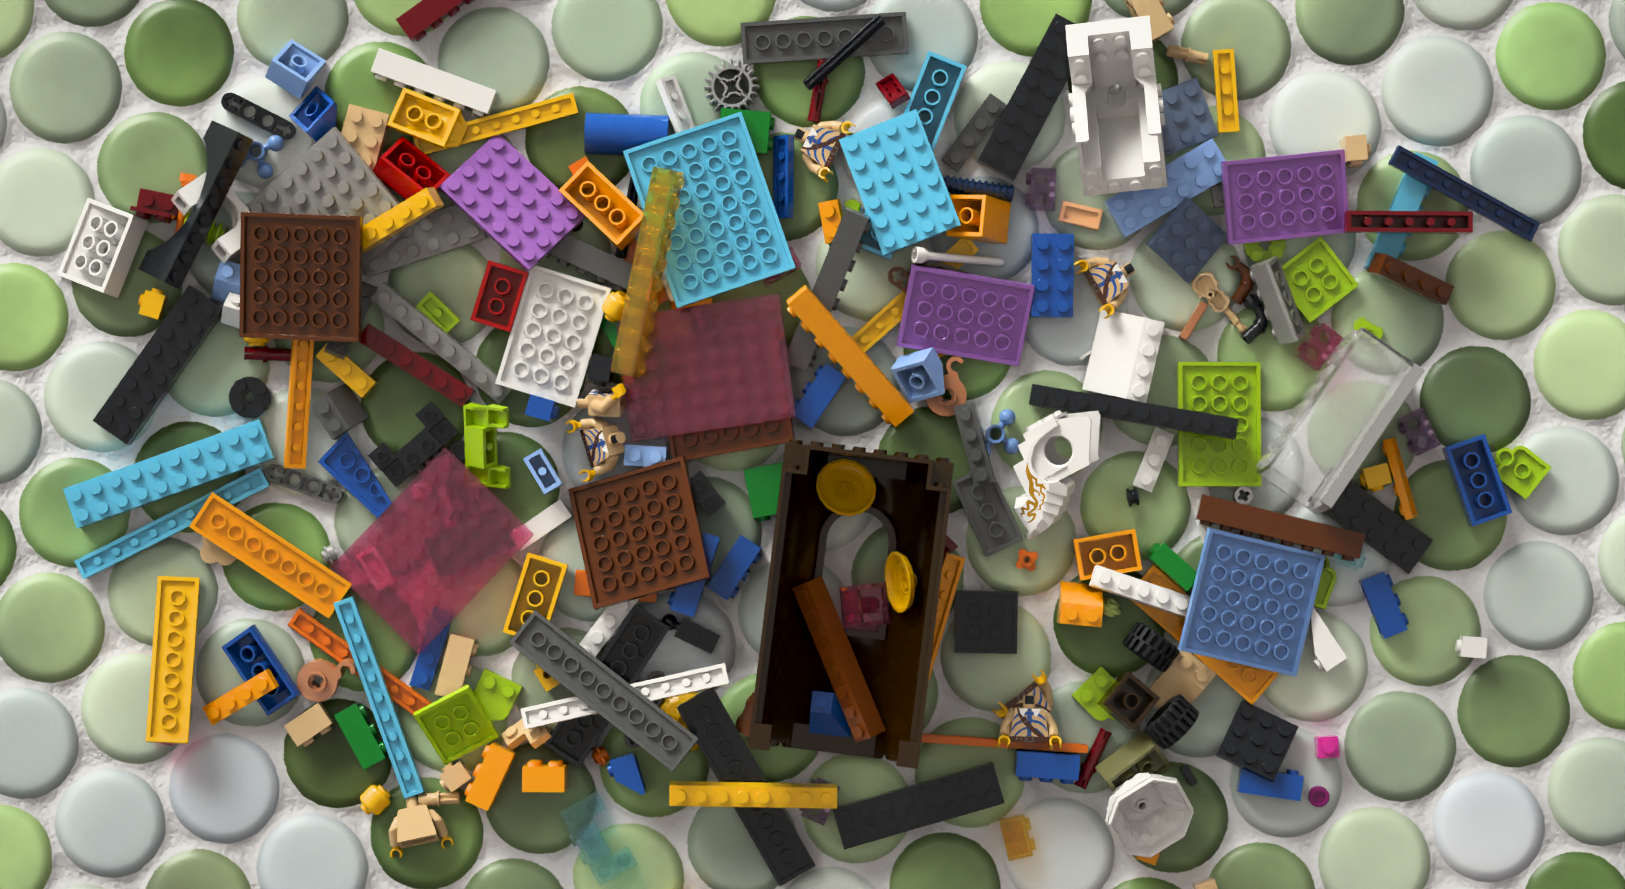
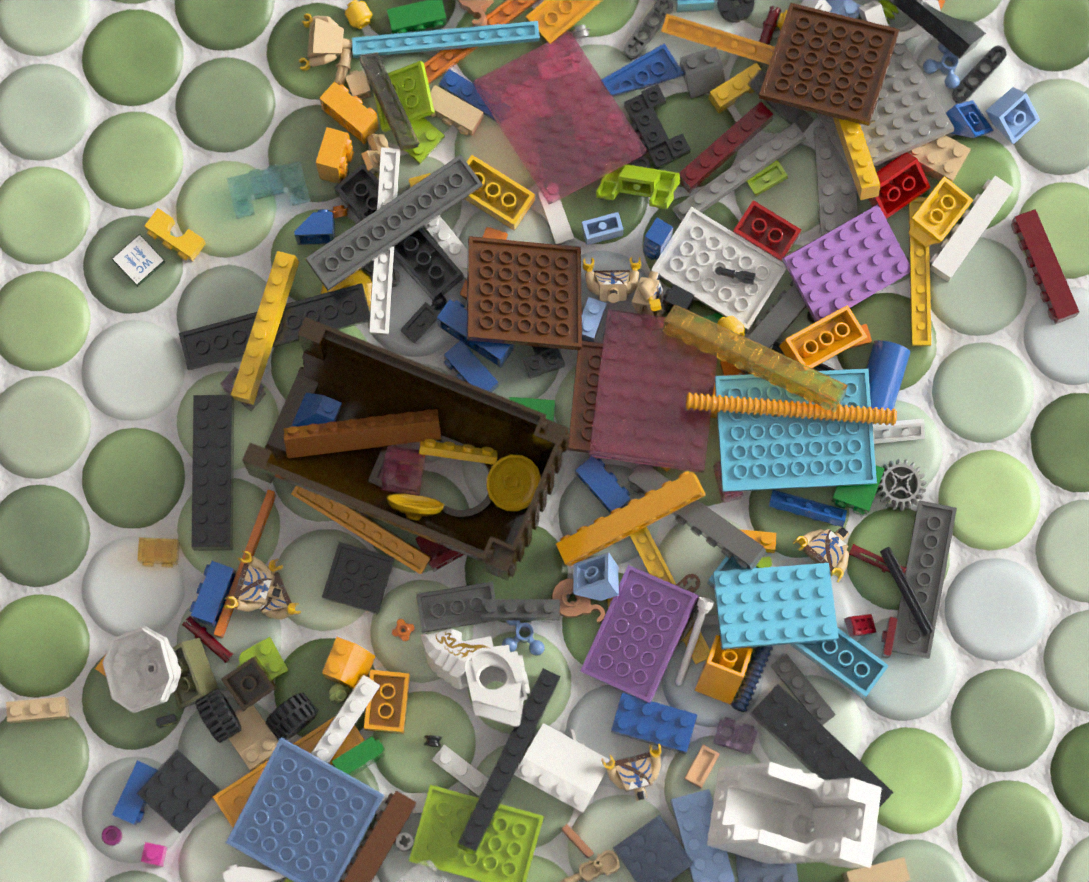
camera: 105 degrees right, 10 degrees down
(468, 736) = (389, 101): none -> clear smoke plate
(556, 306) = (742, 276): none -> black piece
(691, 221) = (790, 409): none -> light orange piece
(830, 553) = (465, 452): none -> yellow plate
(895, 59) = (888, 637): none -> dark red plate

